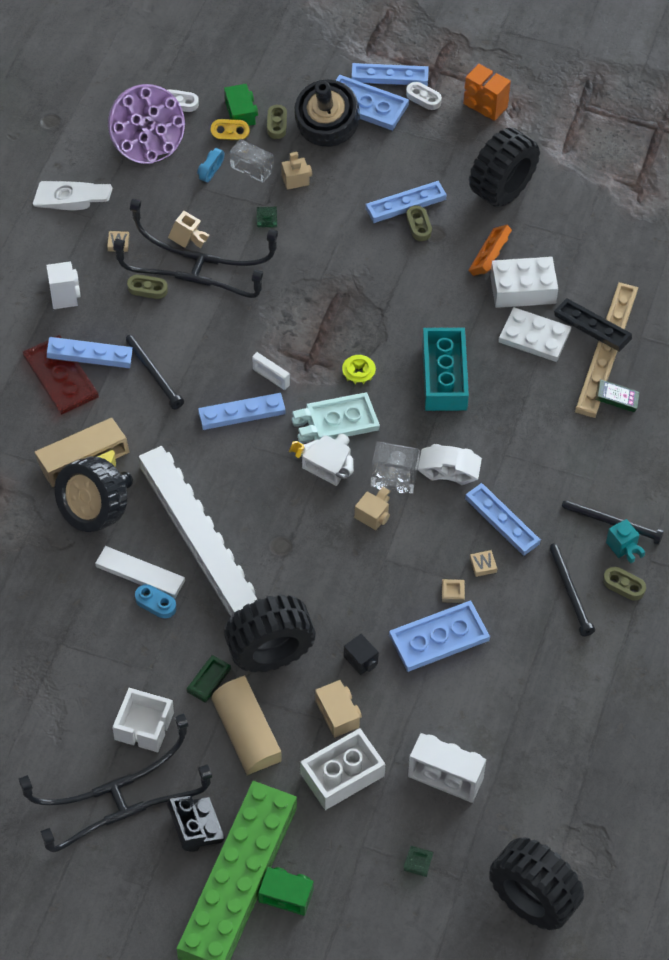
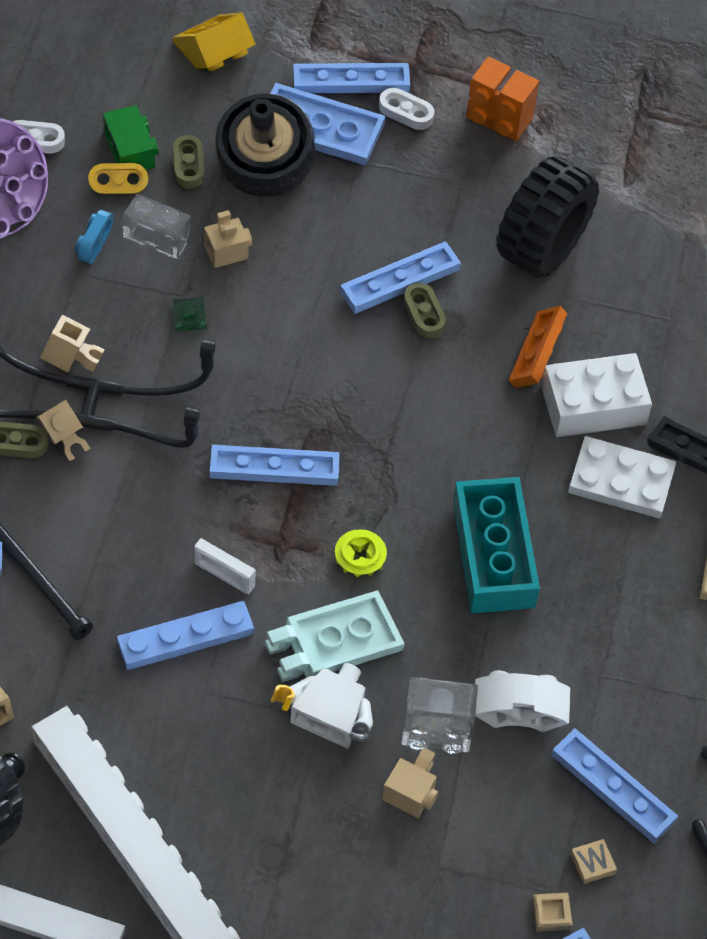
camera: 10 degrees left, 0 degrees up
(176, 279) = (61, 425): none -> tan brick
(303, 45) = (215, 41): none -> yellow slope
(310, 312) = (274, 465): none -> light blue plate

